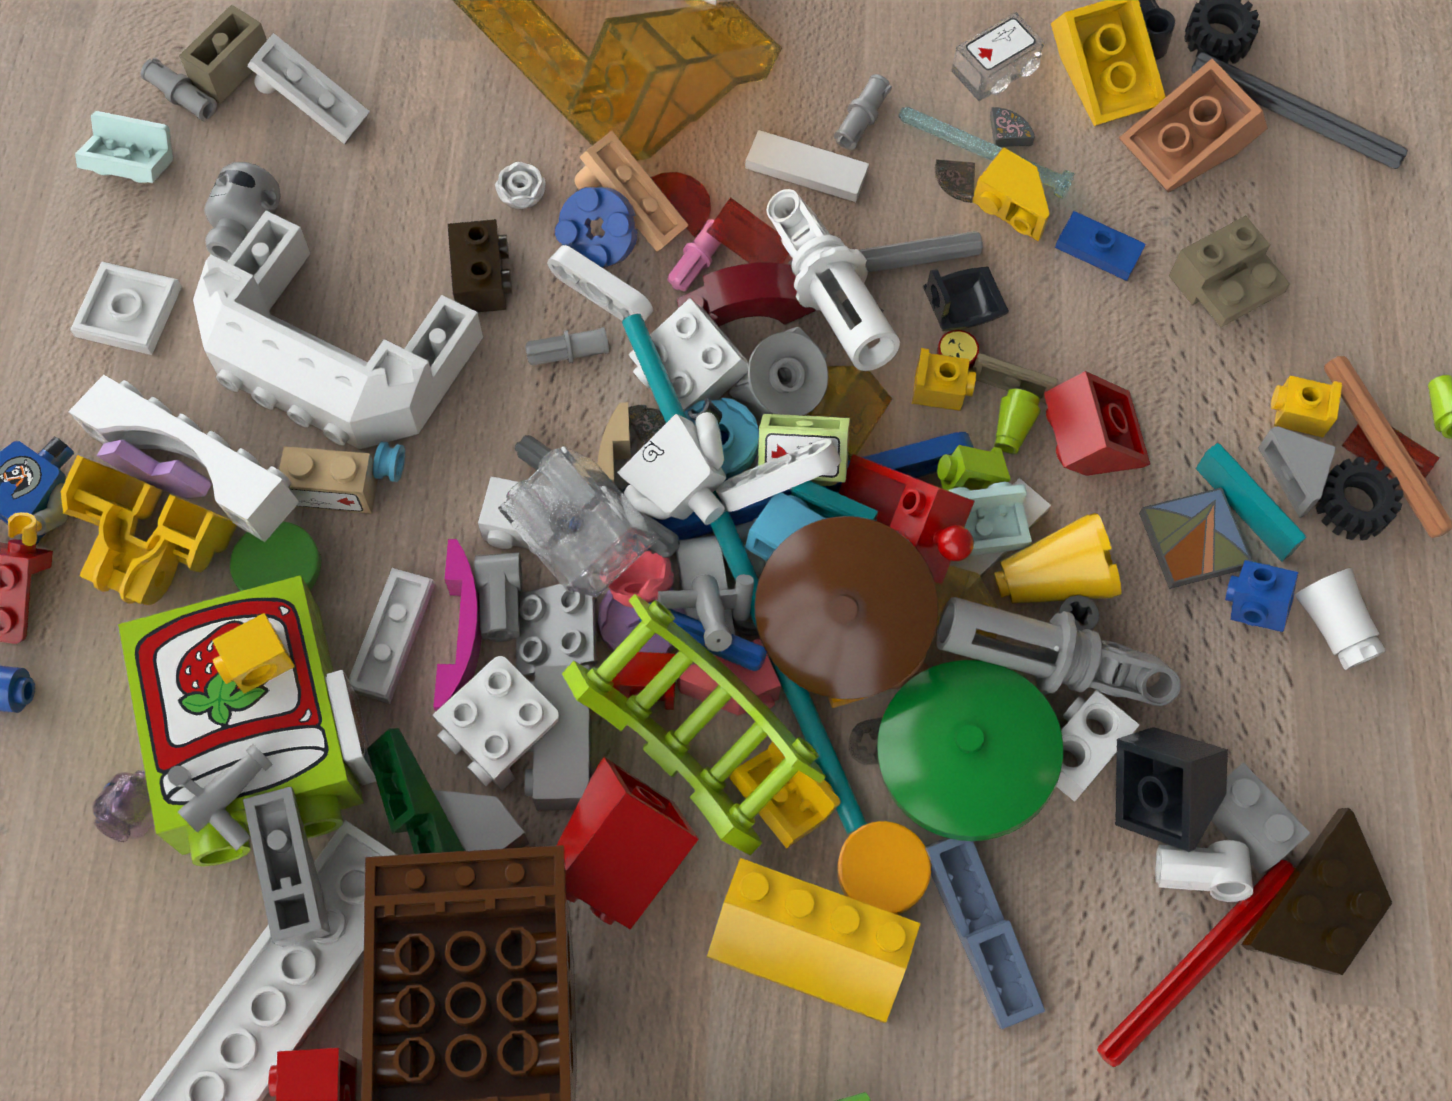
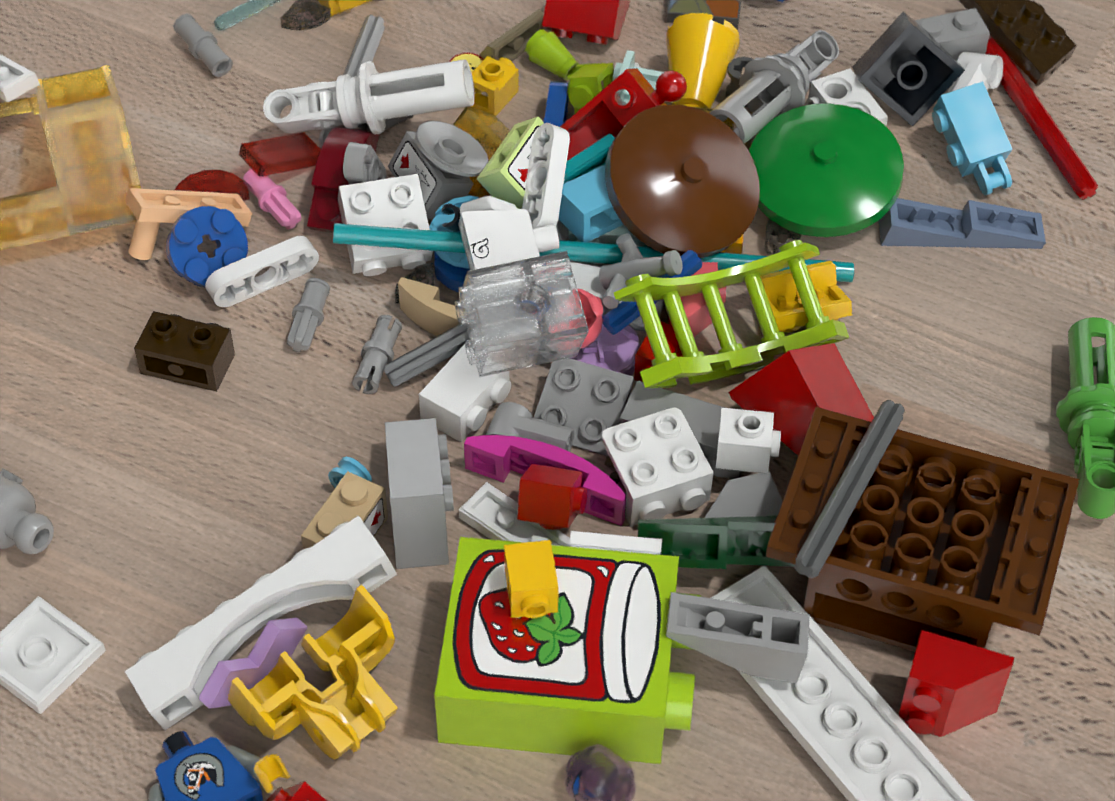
camera: 65 degrees left, 15 degrees down
(210, 802) = (652, 650): light grey piece -> none
(282, 556) = (414, 598): bright green tile -> none
(308, 376) = (214, 509): white wedge -> none
(389, 520) = (418, 492): none -> light grey wedge
(412, 639) = (551, 496): none -> red brick
(459, 914) = (849, 489): none -> dark grey axle
(520, 175) = (116, 296): white plate -> none
(534, 795) = (746, 440): none -> white brick
(546, 424) = (377, 354): none -> light grey pin
(735, 312) = (362, 164): none -> light grey beam
(807, 166) = (228, 101): white tile -> none
(813, 940) = (932, 324): yellow slope -> none
(884, 866) = (892, 265): light orange tile -> none
(964, 298) = (426, 42): black piece -> none
(1108, 896) = (974, 136): none -> medium azure brick

